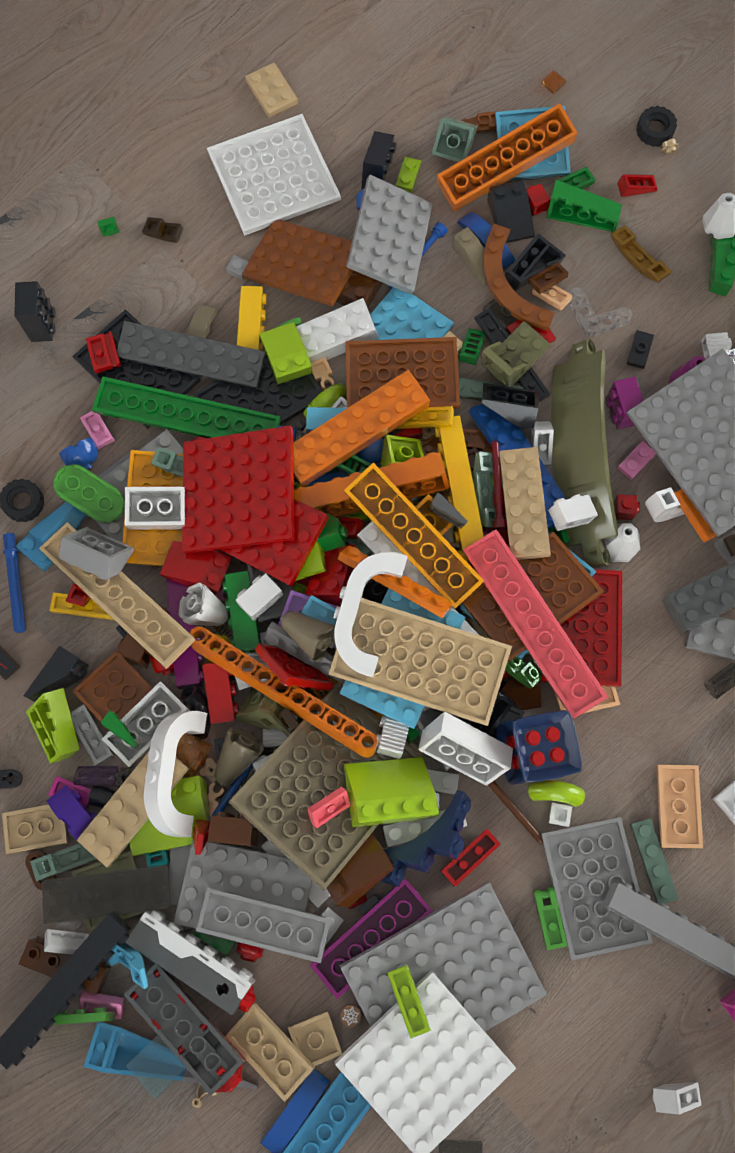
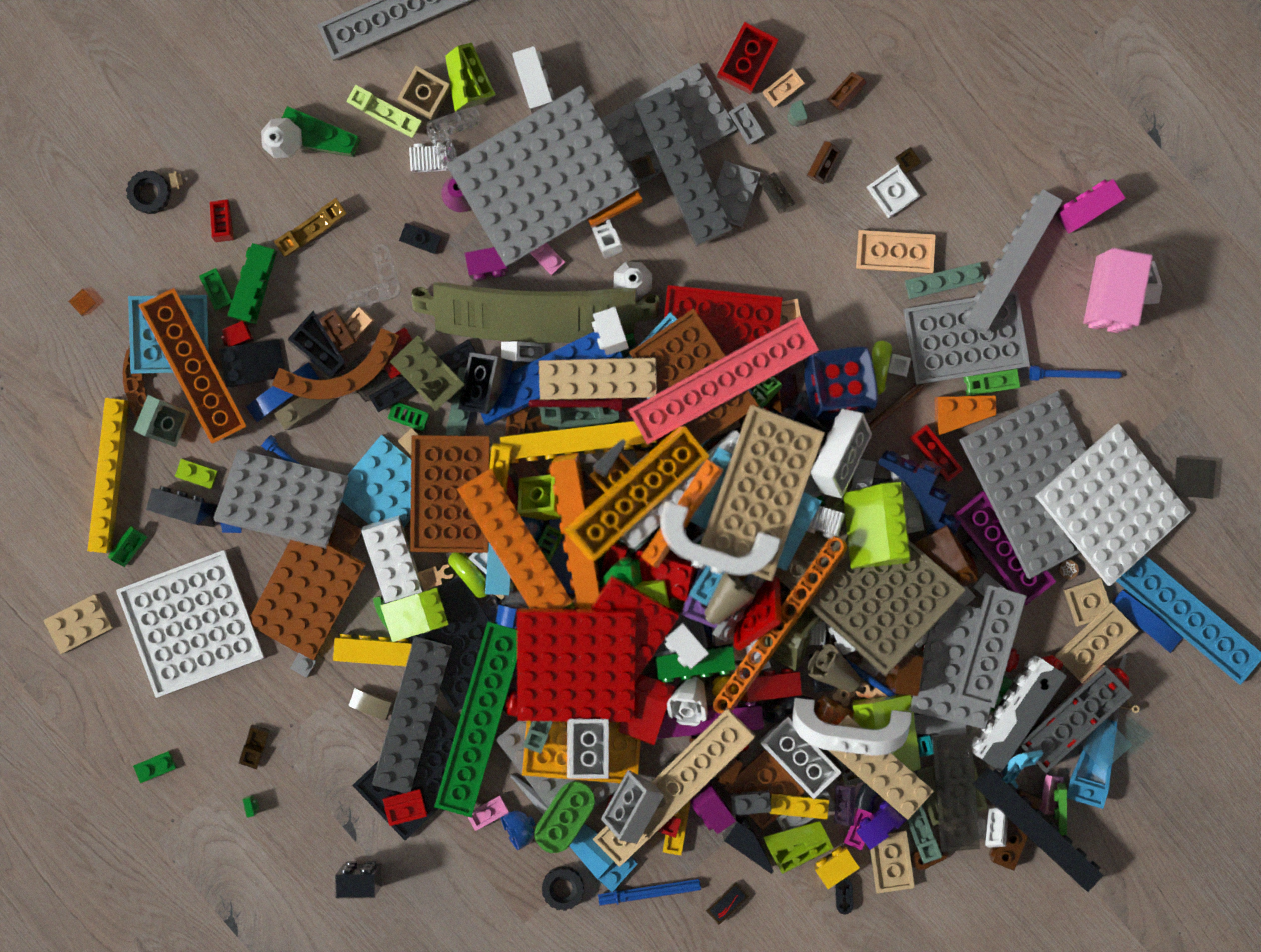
camera: 85 degrees left, 15 degrees up
(31, 769) = (836, 866): none -> yellow brick
(93, 729) = (799, 806): none -> yellow plate
(95, 635) = (712, 809): none -> magenta brick
(99, 674) = (750, 802): none -> dark grey brick
(116, 726) = (805, 783): green slope -> none
(145, 152) = (154, 766): none -> green plate
(200, 835) = (908, 704): red slope -> none
(288, 719) = (807, 619): dark brown plate -> none
(328, 807) = (892, 583): coral plate -> none
(340, 121) = (127, 546): none -> green plate
(402, 103) = (108, 475): none -> yellow brick
(409, 1001) = (1061, 517): lime tile -> none
(517, 886) = (961, 411): none -> orange wedge
(564, 970) = (1037, 373): none -> blue piece
(626, 507) = (597, 272): red brick -> none
(671, 1059) = (1117, 290): none -> bright pink brick

